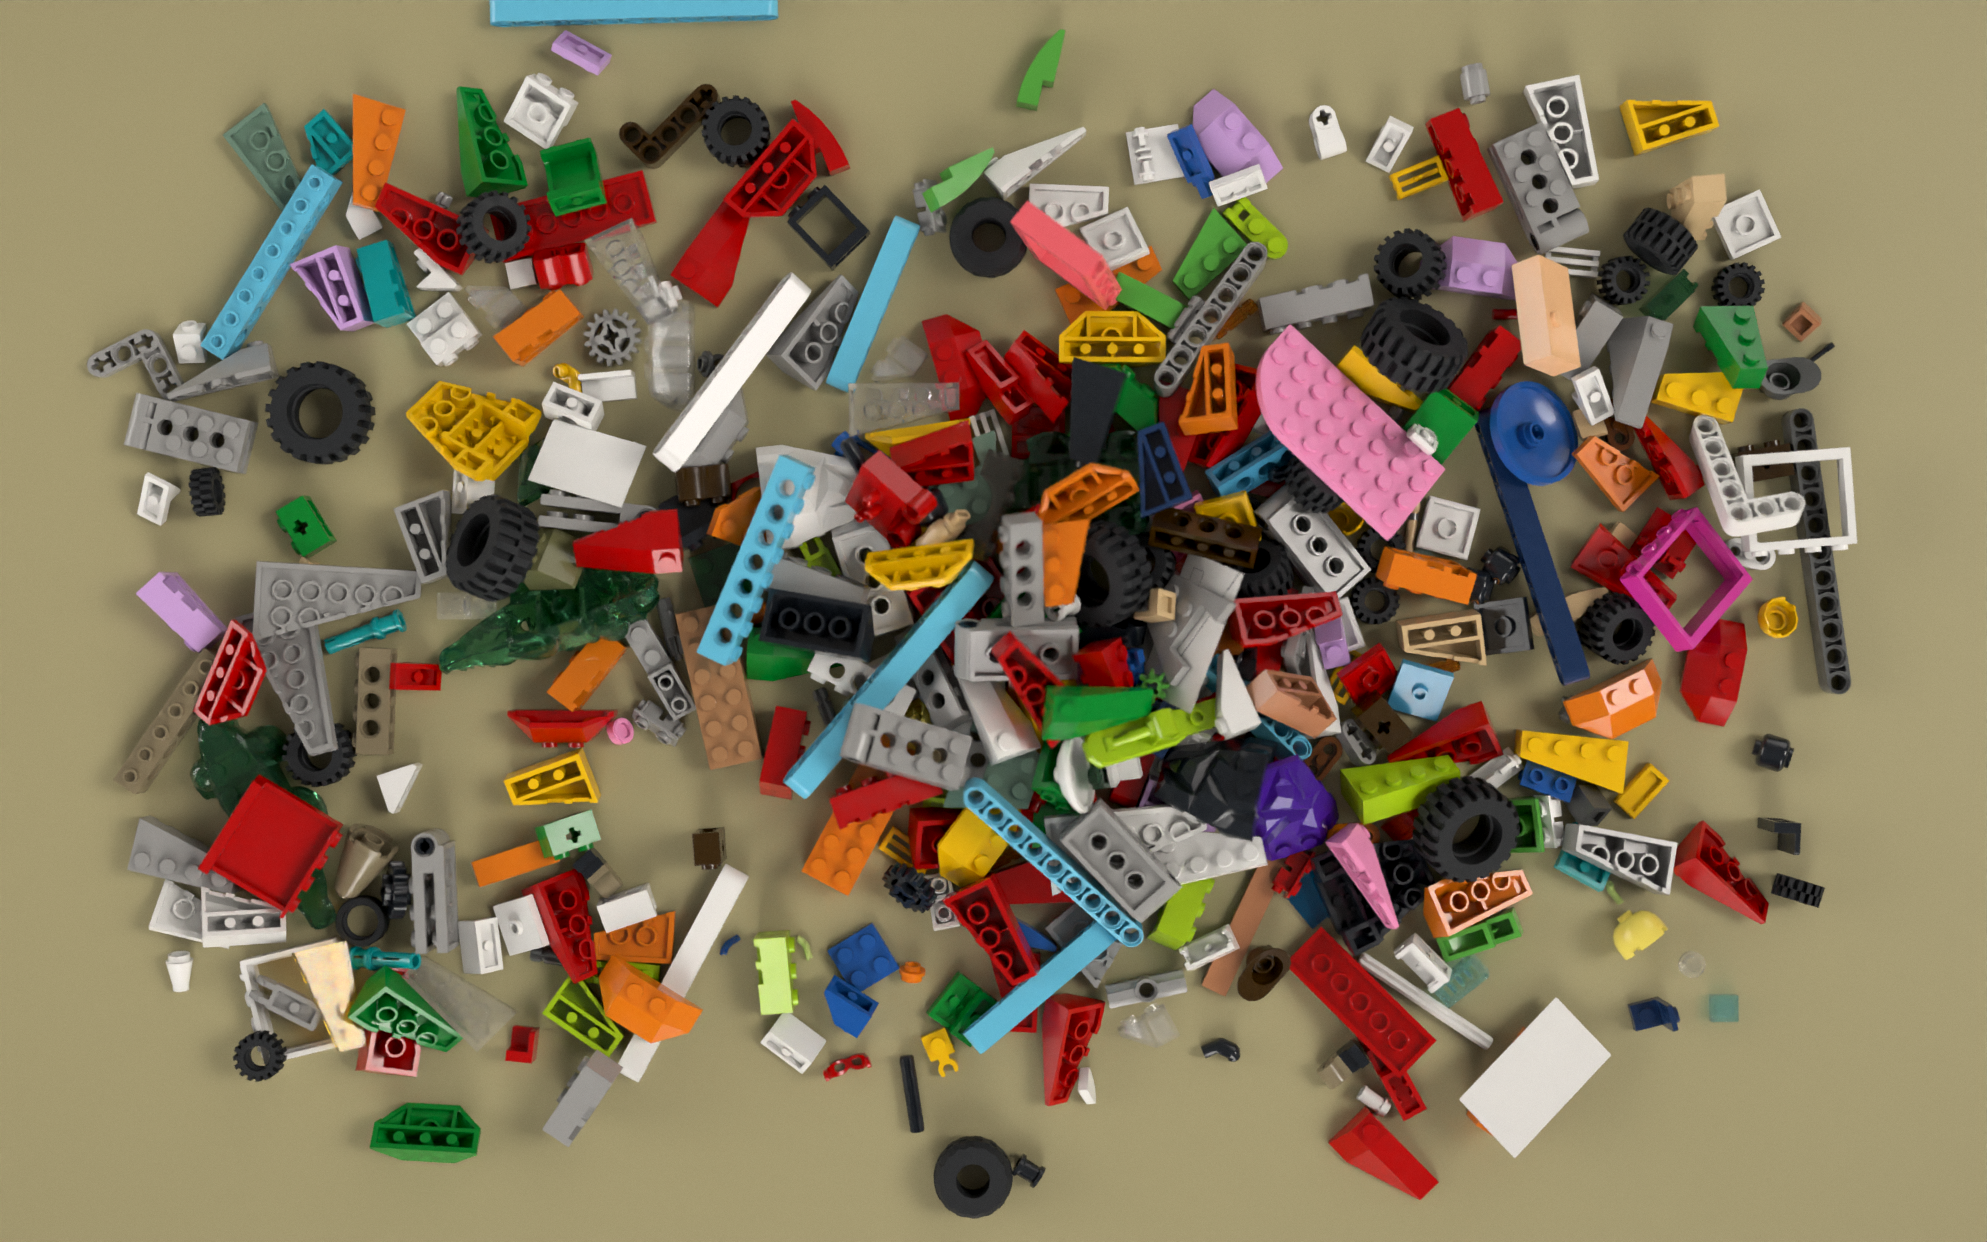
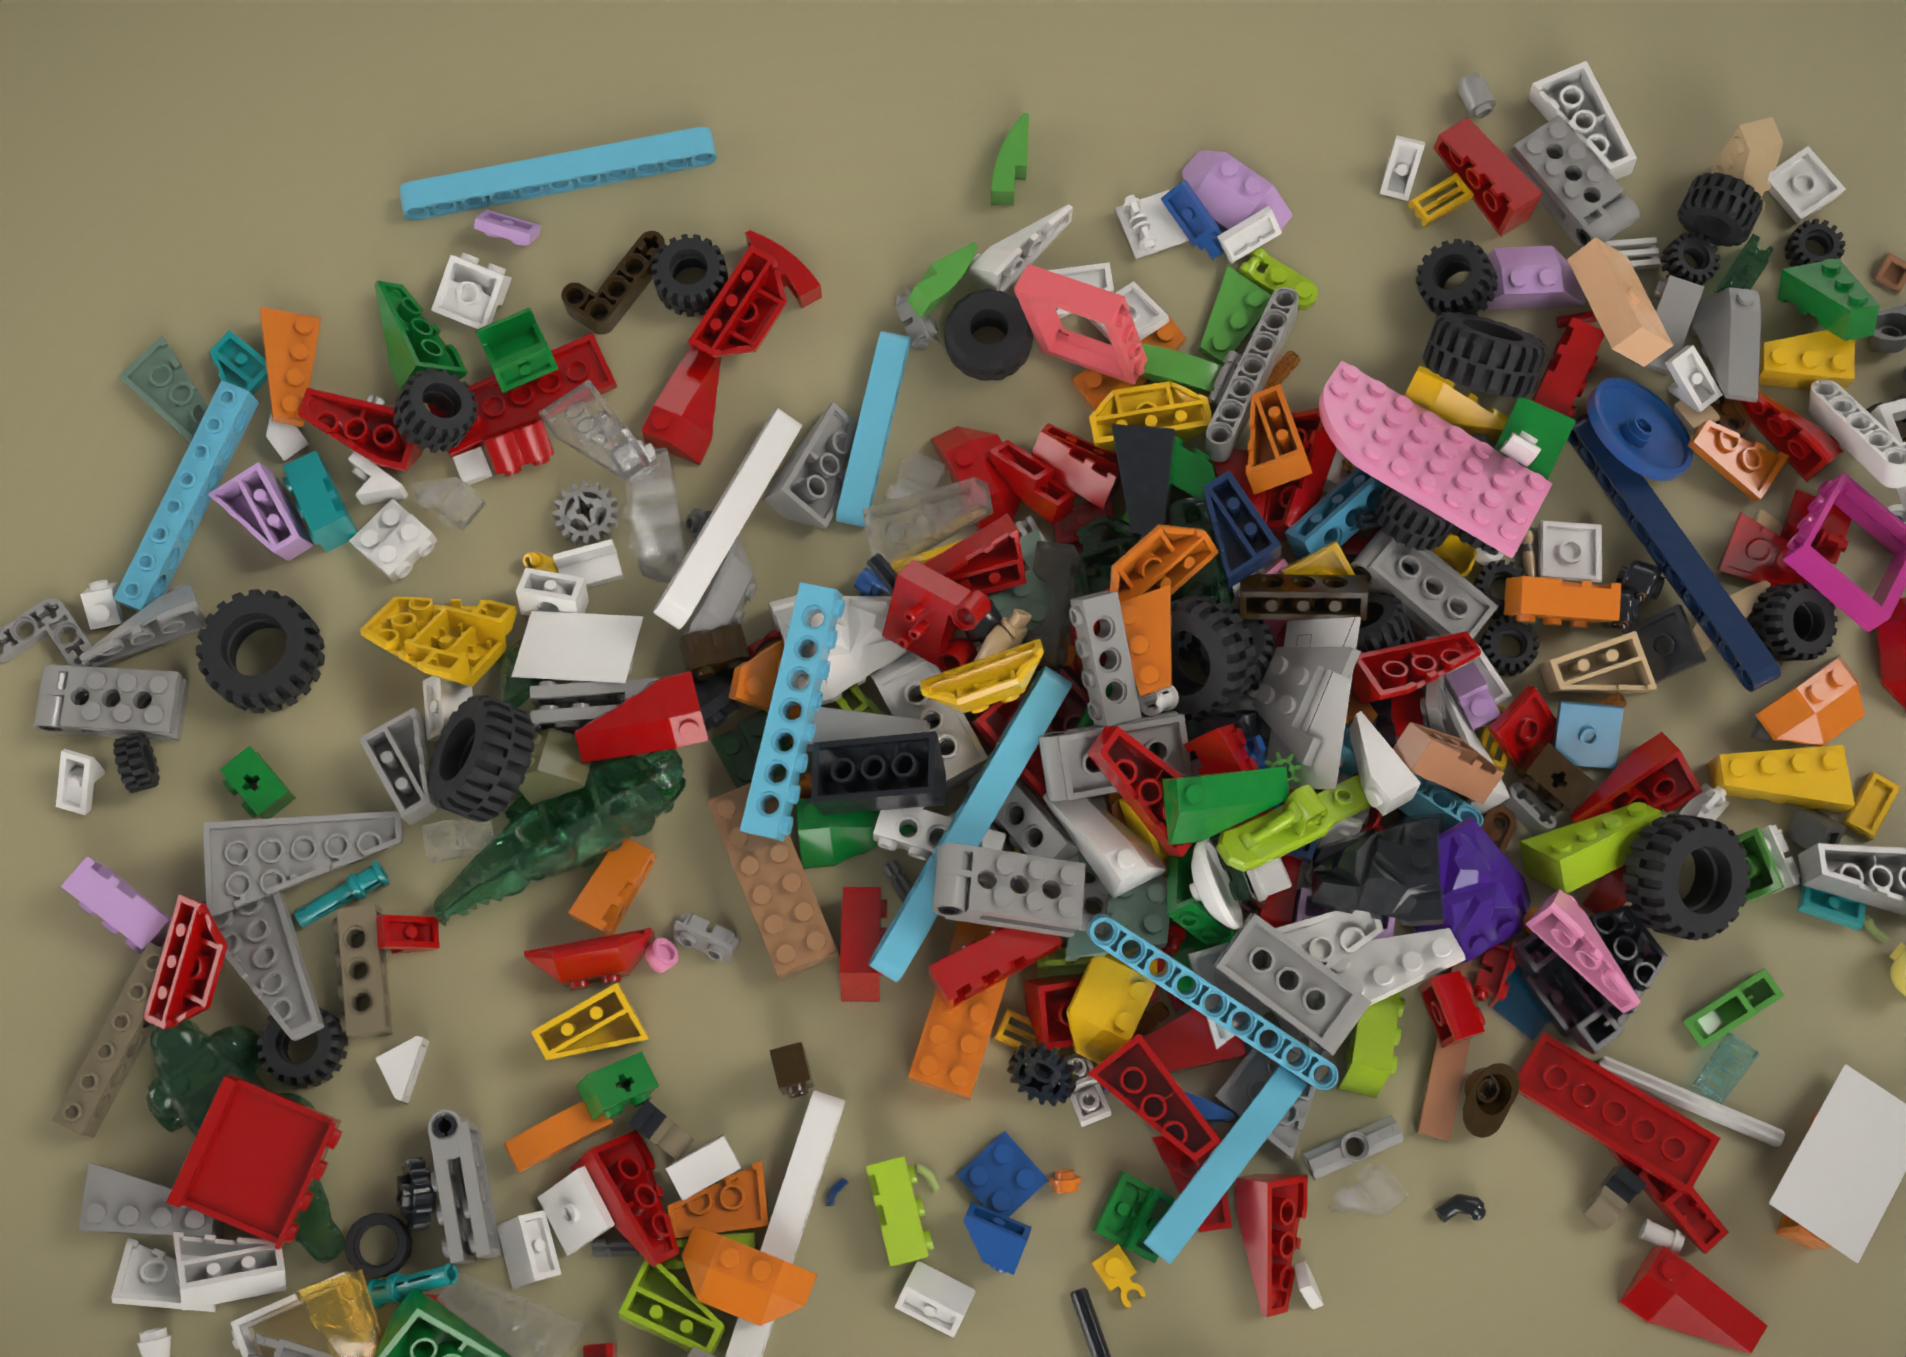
camera: 10 degrees left, 15 degrees down
(362, 859) = (368, 1168): dark tan cone -> none
(539, 327) = (500, 516): orange wedge -> none
(660, 669) = (697, 870): light grey slope -> none
(670, 628) = (705, 830): dark grey piece -> none
(830, 1072) = (1030, 1305): red cap -> none
(842, 251) = (831, 375): black window -> none
(1160, 607) = (1269, 683): tan panel -> none
(1209, 947) = (1418, 1082): white hinge -> none
(1250, 898) = (1452, 1008): none -> red slope
(1315, 304) = (1365, 339): light grey wedge -> none
(1327, 136) = (1331, 169): white piece -> none
(1424, 962) = (1676, 1053): white hinge -> none
(1457, 905) = (1700, 970): orange wedge -> none
(1547, 781) = (1761, 810): blue hinge -> none
(1664, 123) = (1690, 97): yellow wedge -> none

